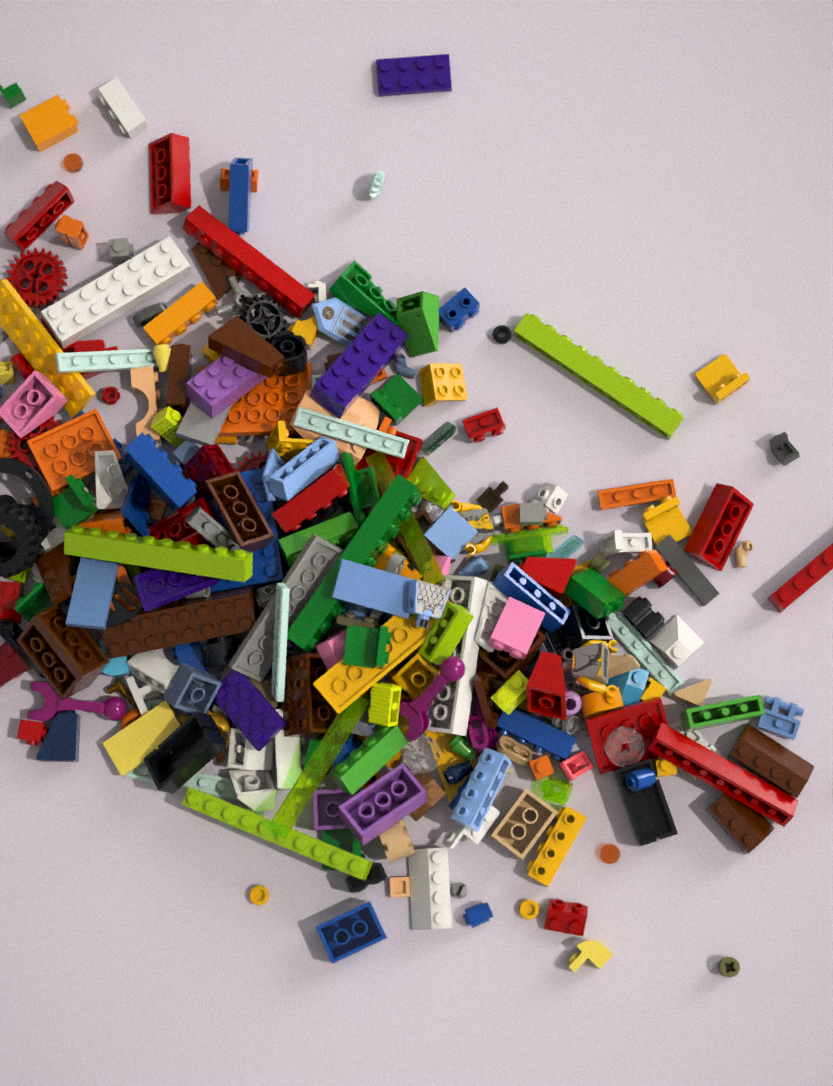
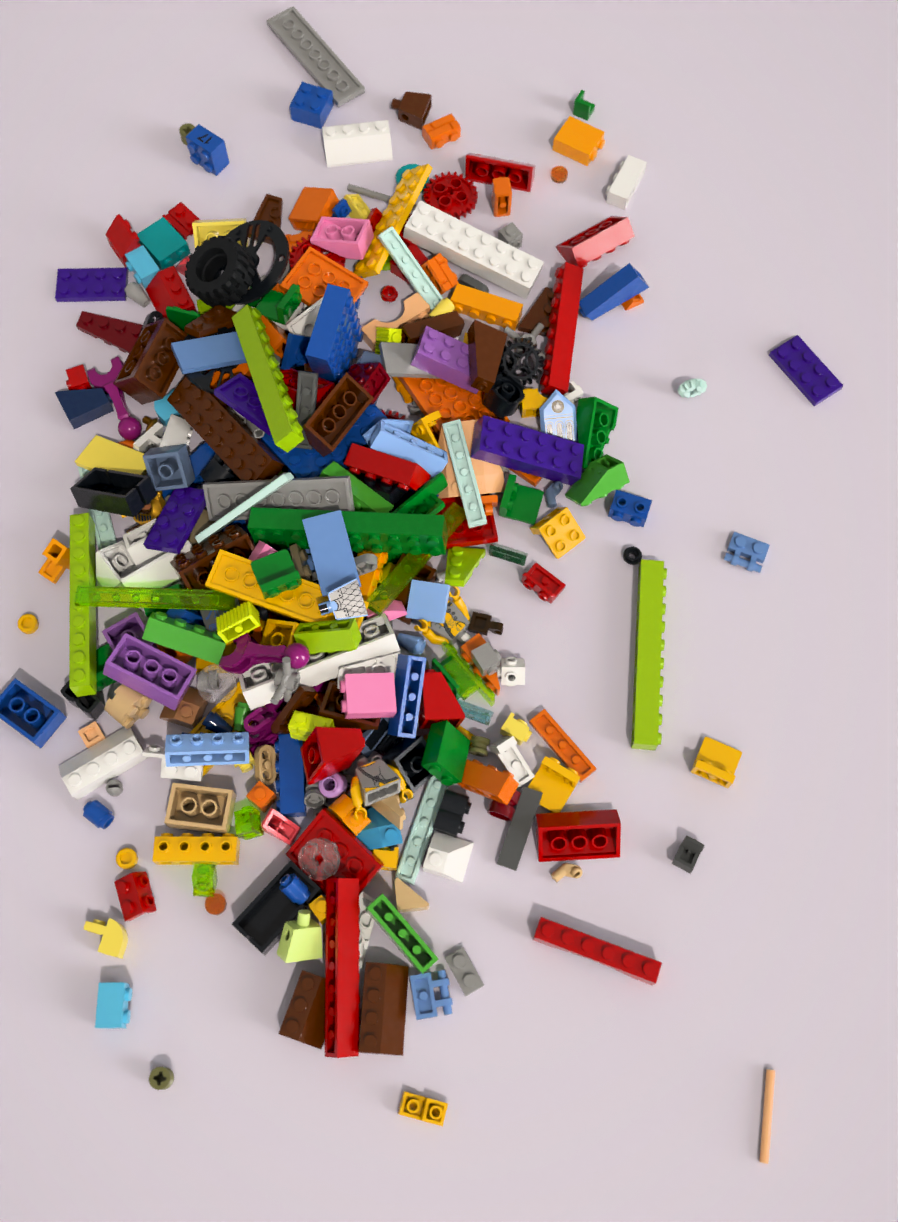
camera: 55 degrees right, 10 degrees down
(123, 337) = (440, 273): none -> orange brick
(215, 840) = (57, 561): none -> light orange brick
(467, 690) = (286, 680): none -> light grey bar
(551, 233) = (748, 548): none -> medium blue plate
(587, 852) = (204, 880): none -> clear neon green brick
(602, 524) = (516, 728): none -> light yellow brick
(650, 977) = (113, 1005): none -> medium azure brick
(683, 796) = (300, 939): none -> yellowish green torso
(776, 681) = (464, 971): none -> light grey plate

